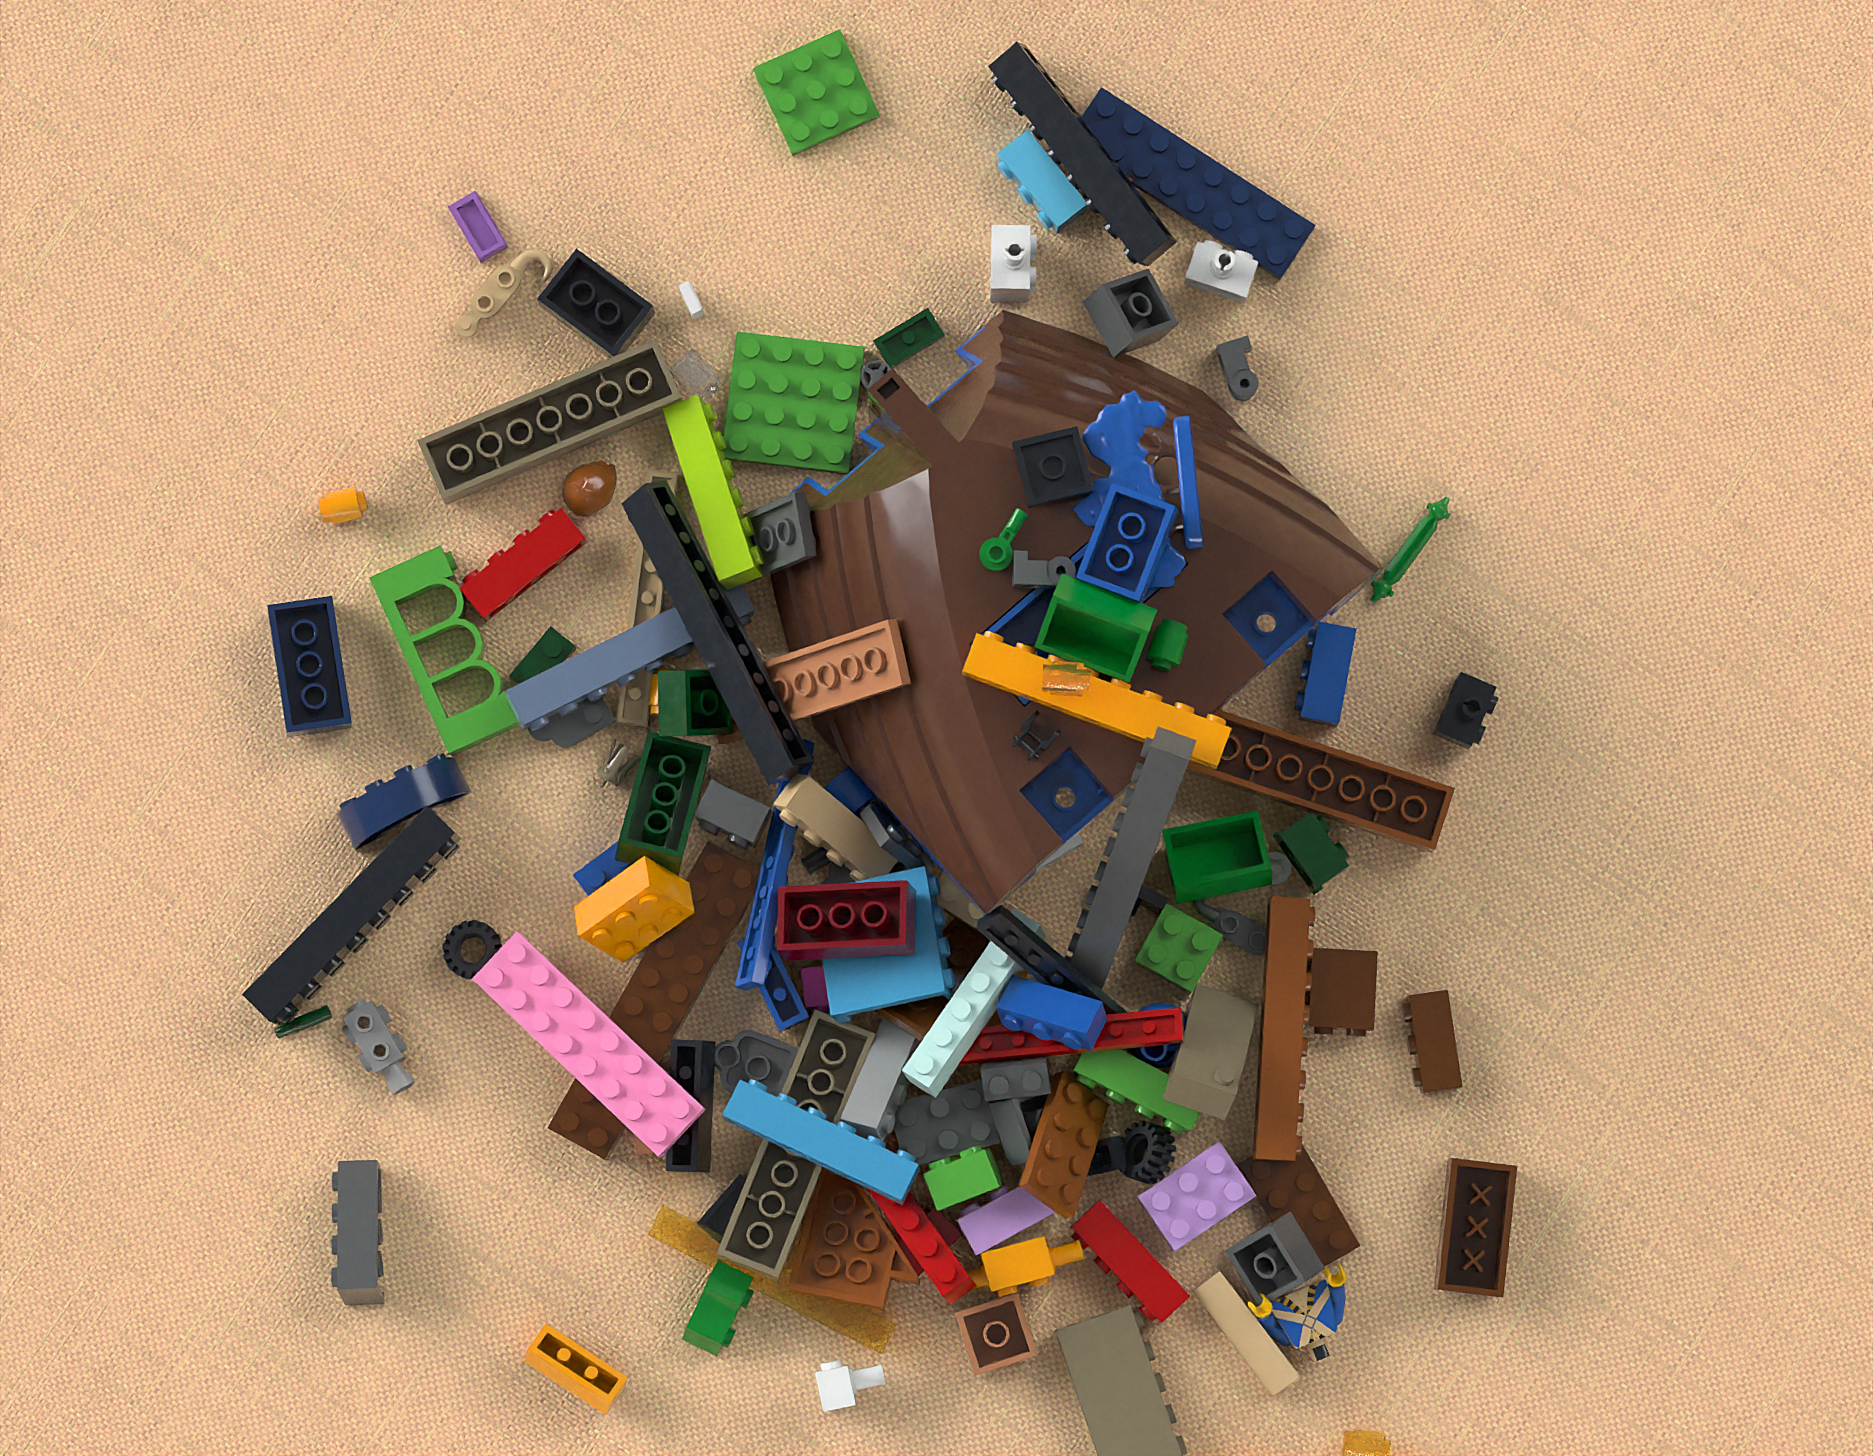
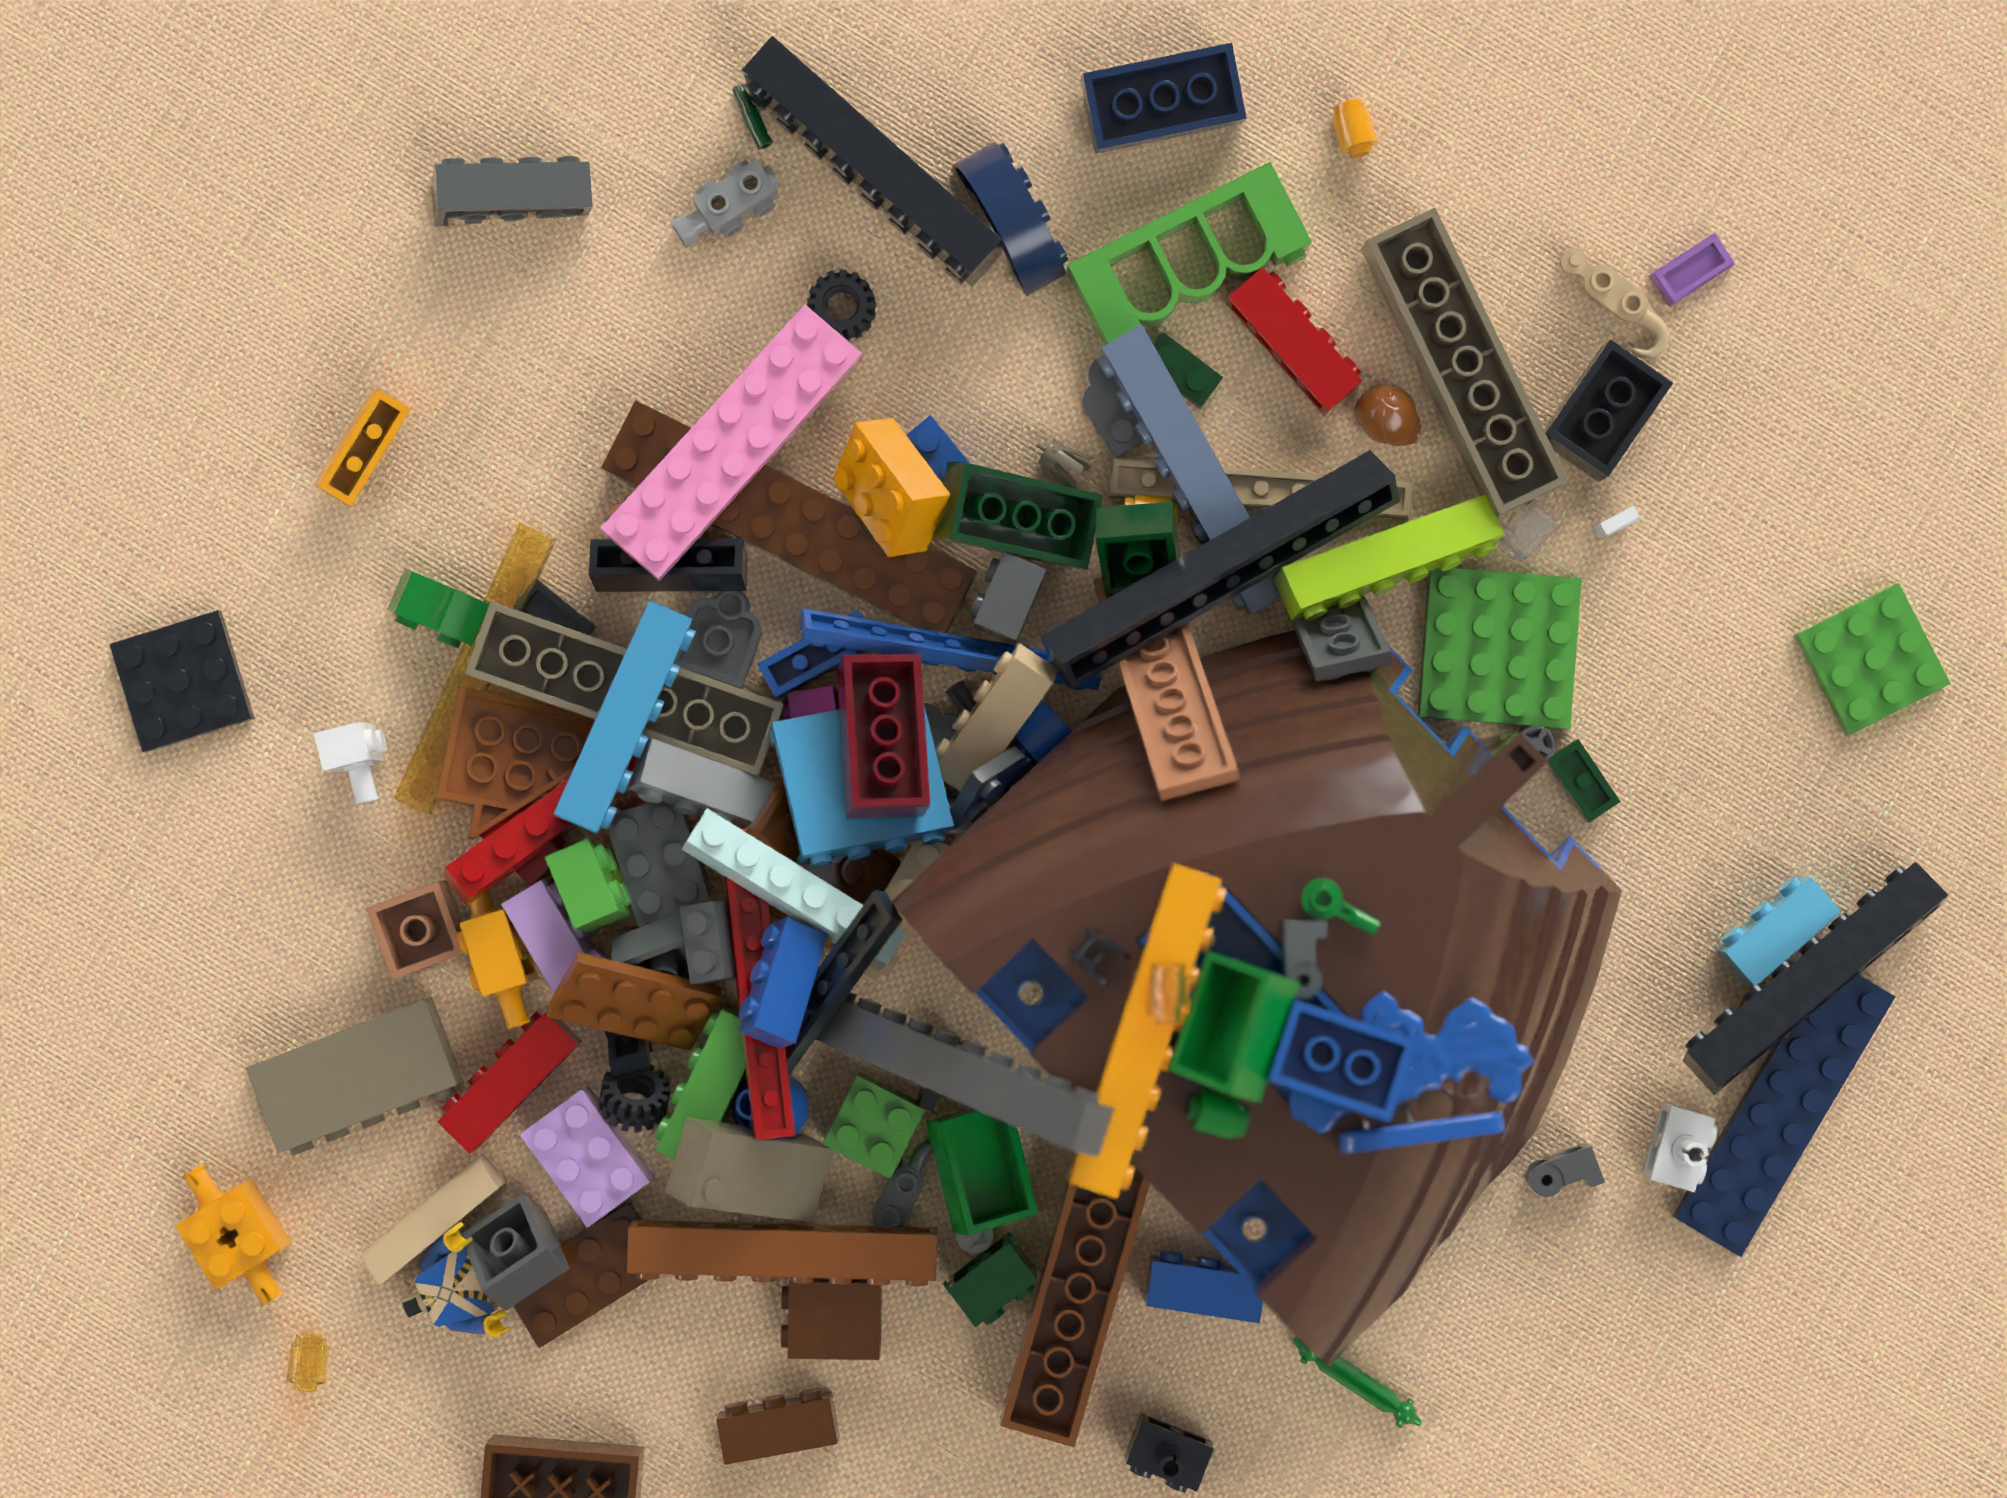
camera: 85 degrees right, 5 degrees up
(1010, 263) = (1679, 897): white brick -> none
(1052, 467) = (1433, 964): black plate -> none
(1130, 312) = (1626, 1042): dark grey brick -> none

